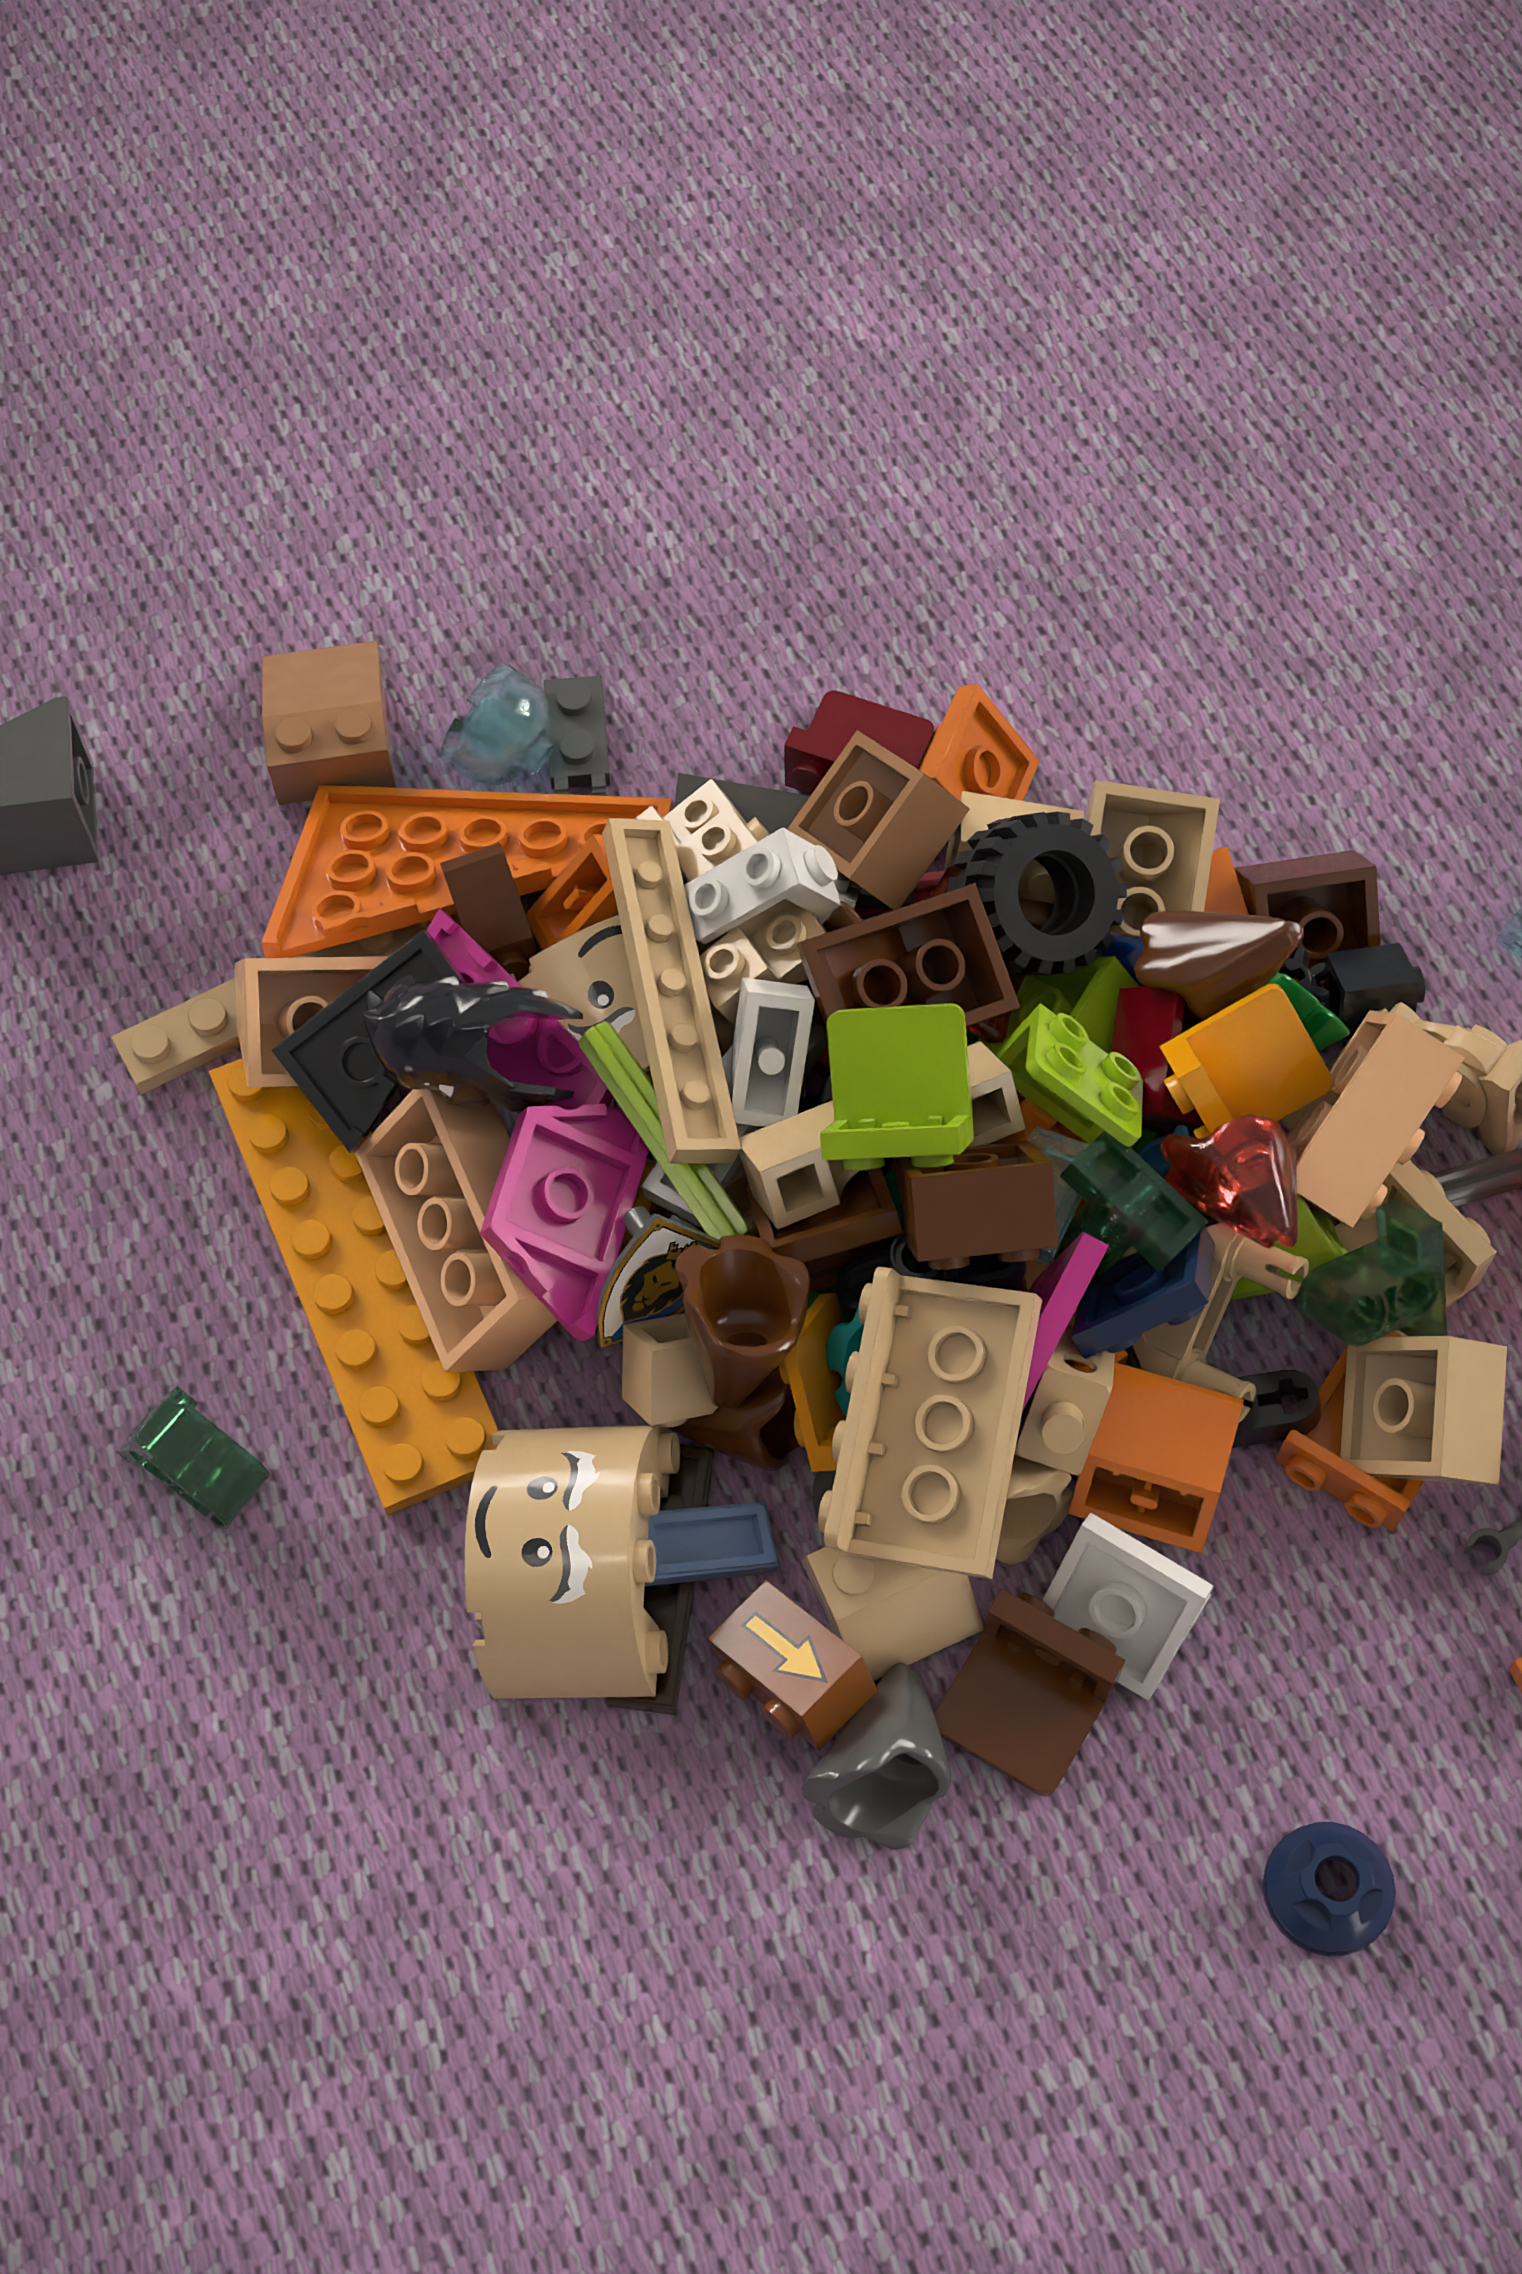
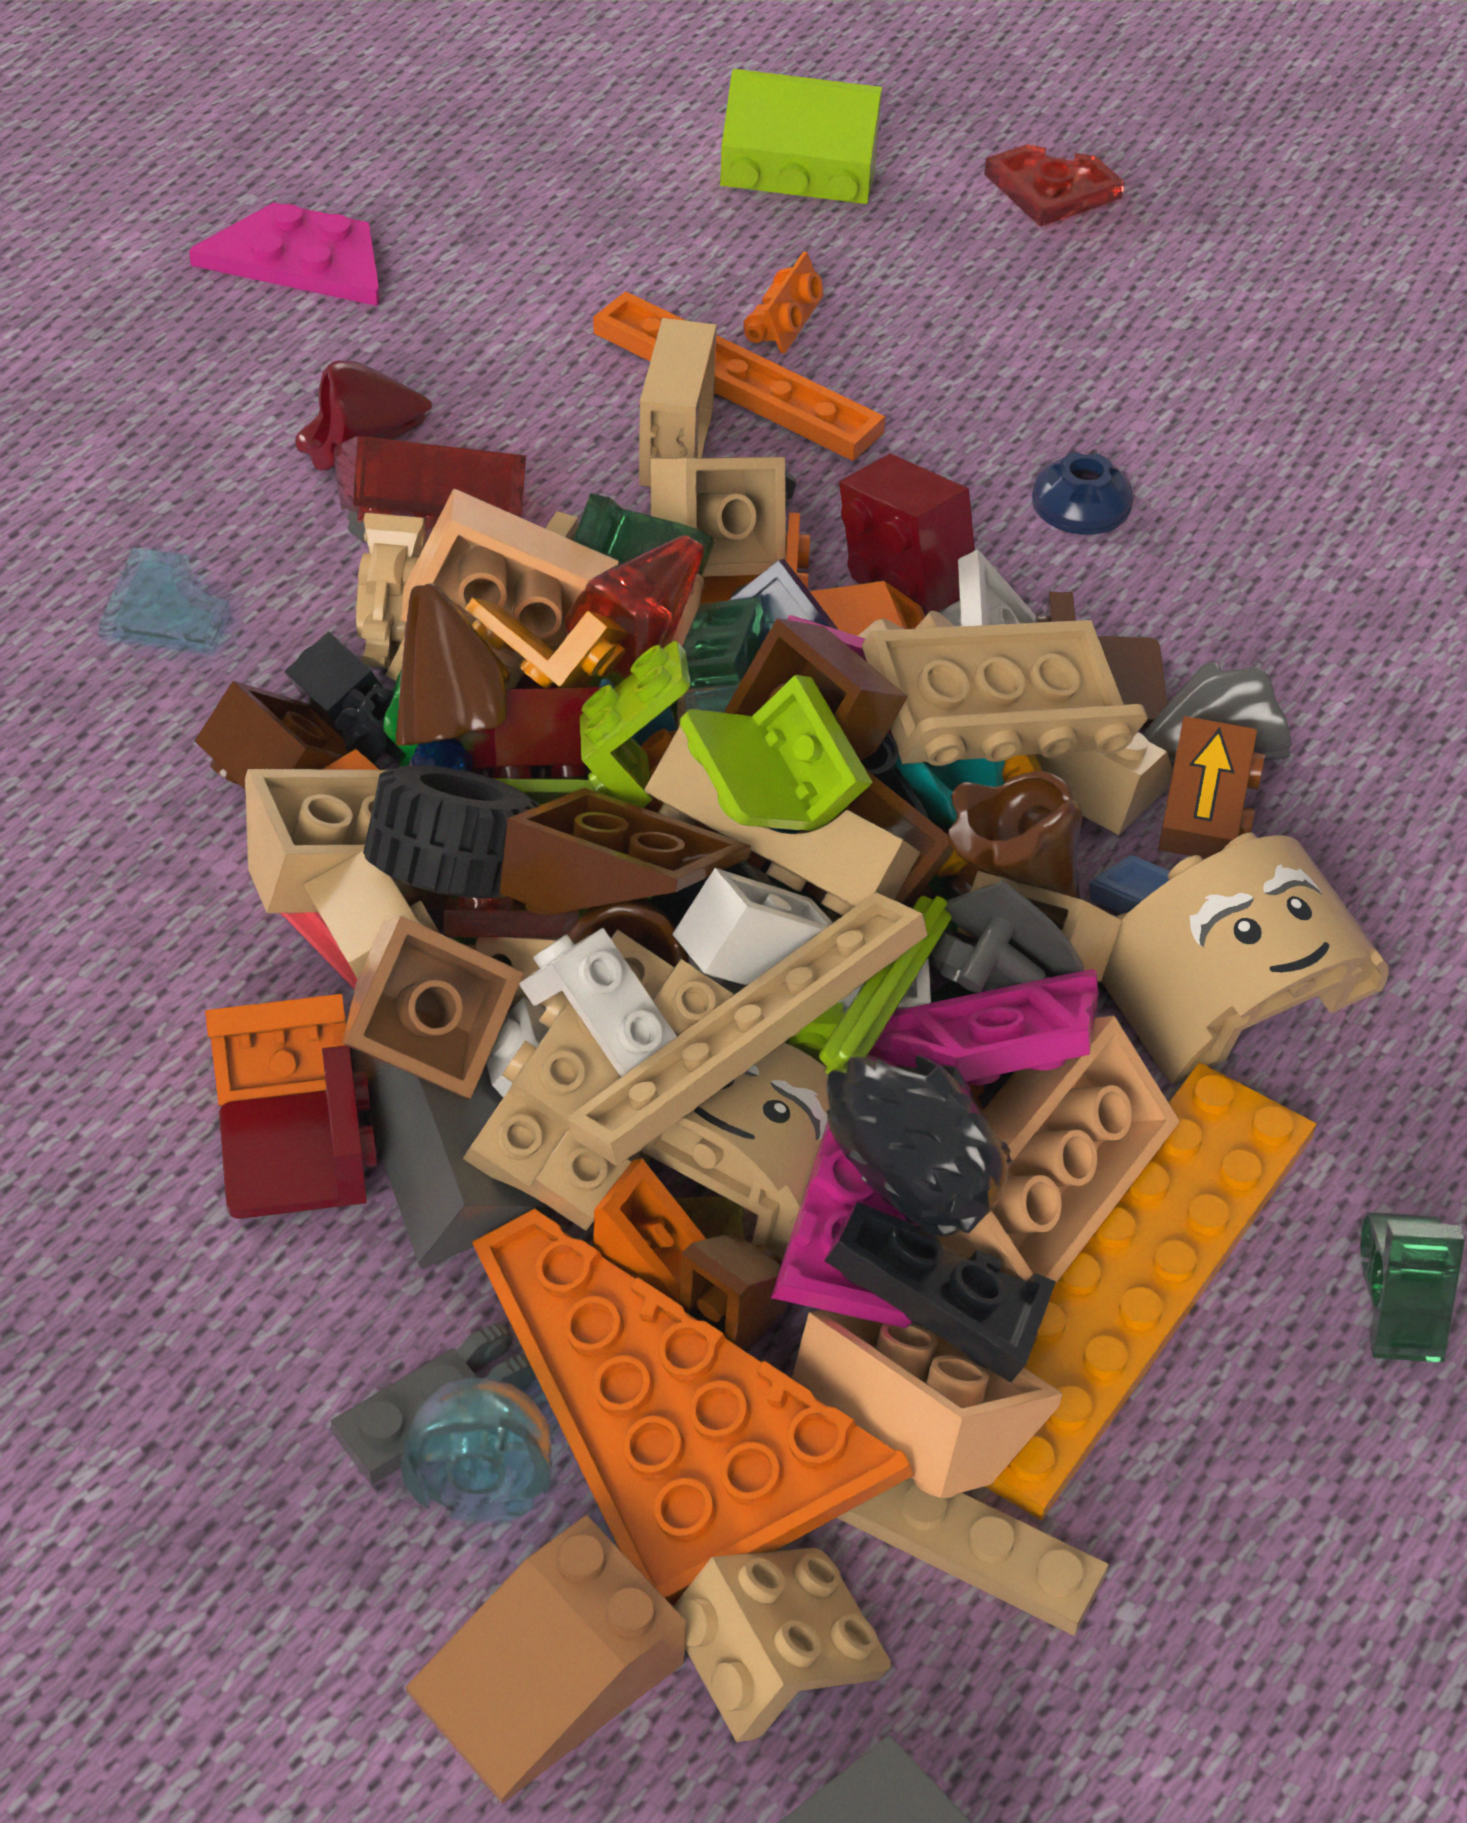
camera: 125 degrees left, 15 degrees down
(234, 854) = (773, 1629): none -> tan bracket
(1299, 1580) = (907, 530): none -> dark red brick

